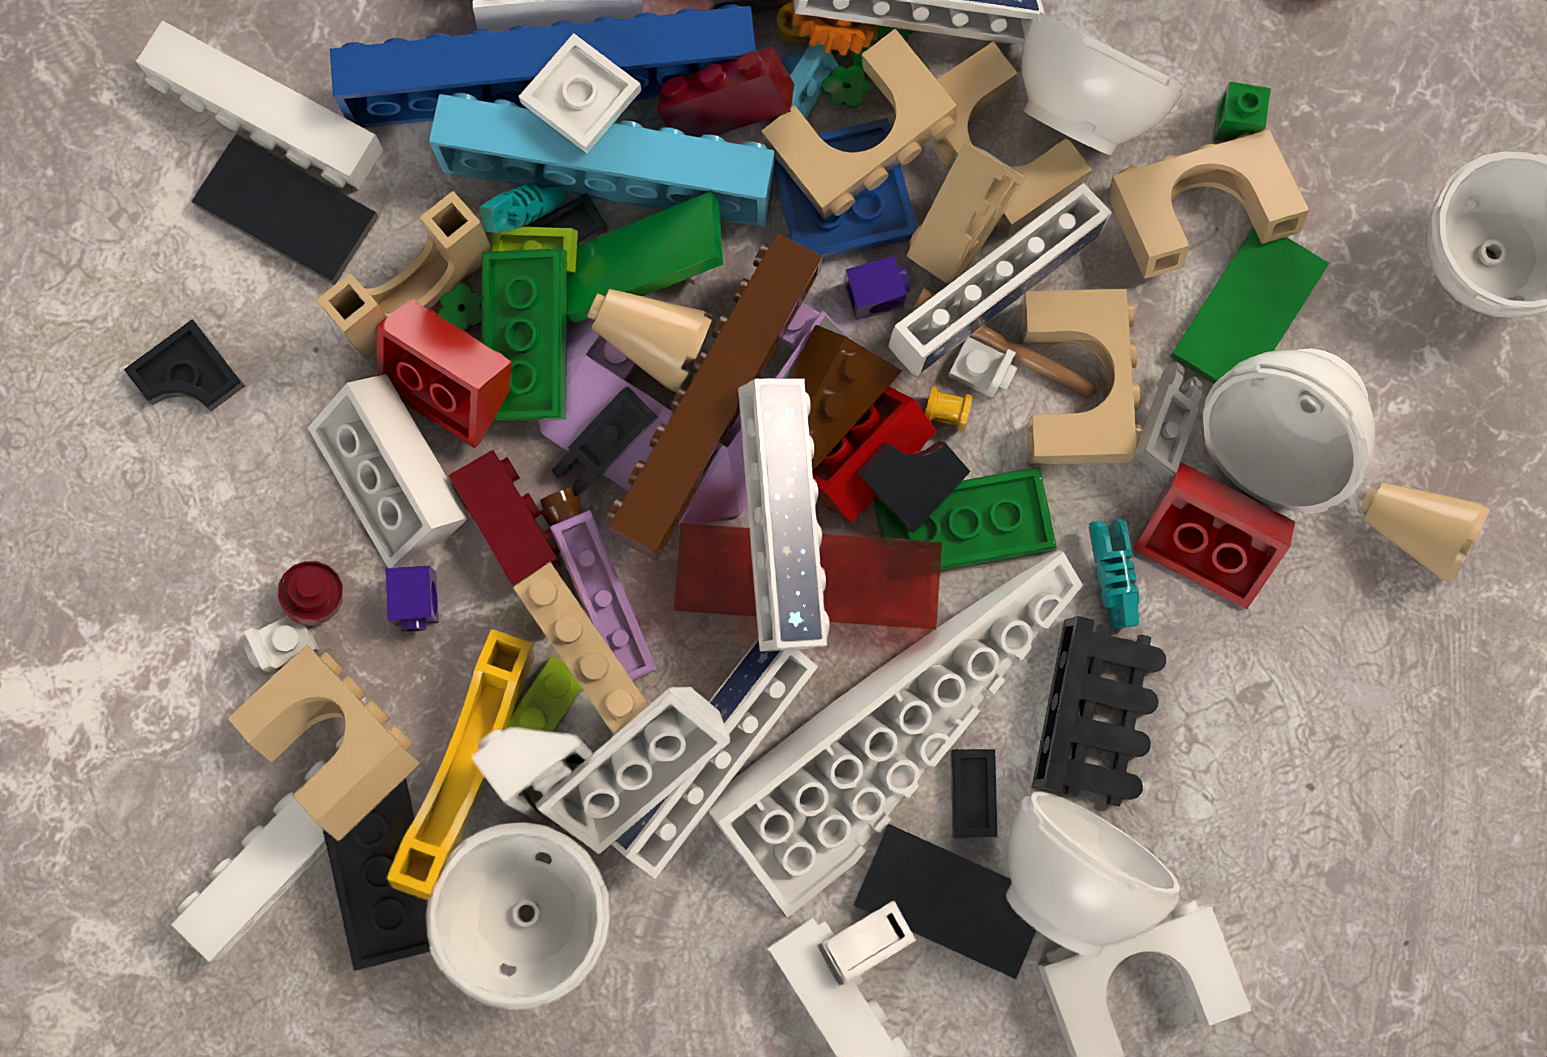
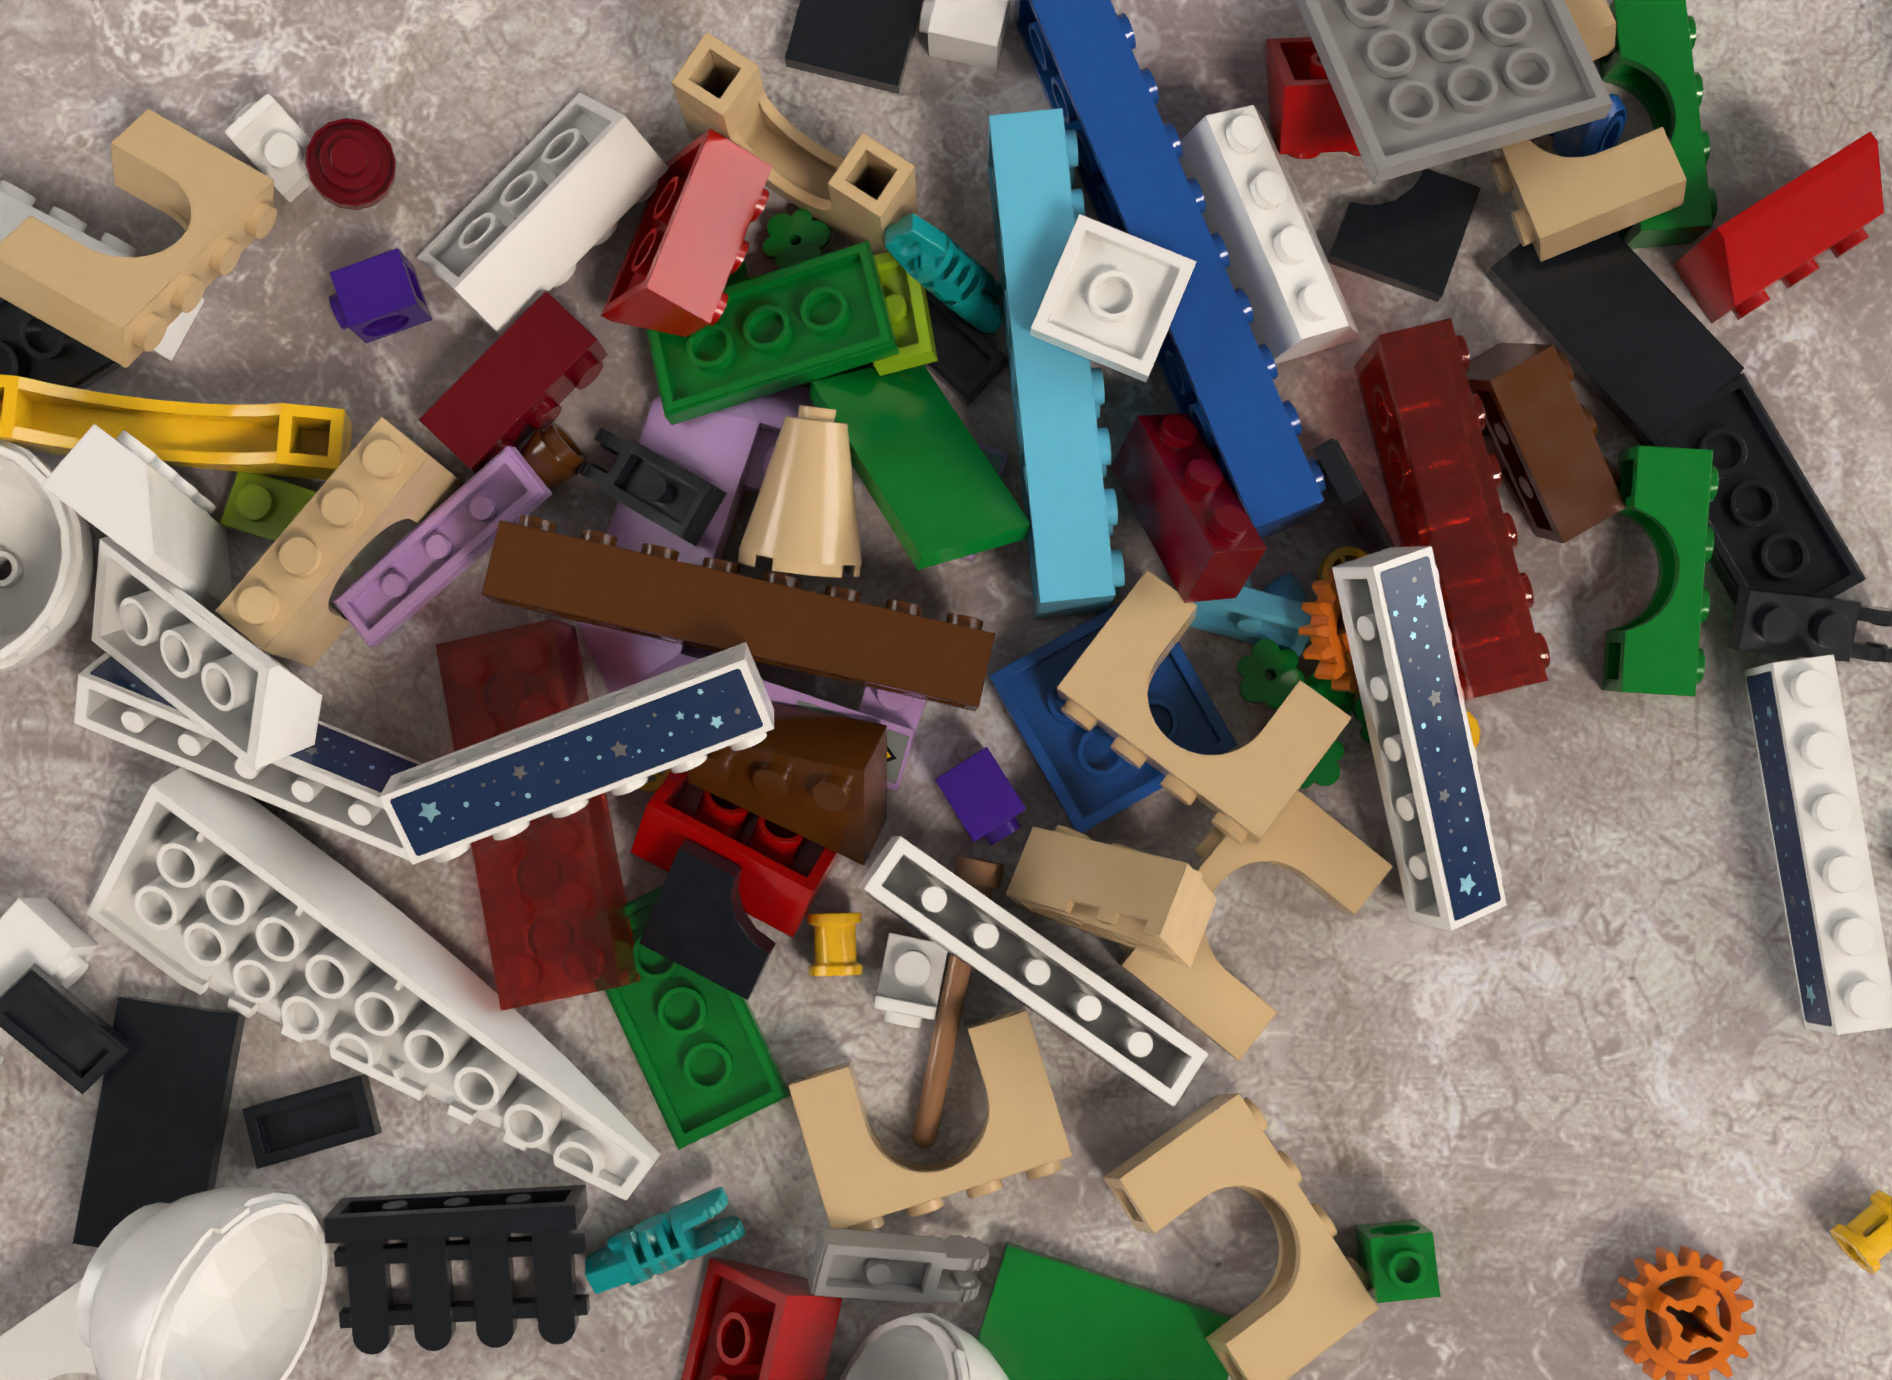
camera: 80 degrees right, 5 degrees up
(1090, 87) = (1360, 1030): white piece -> none

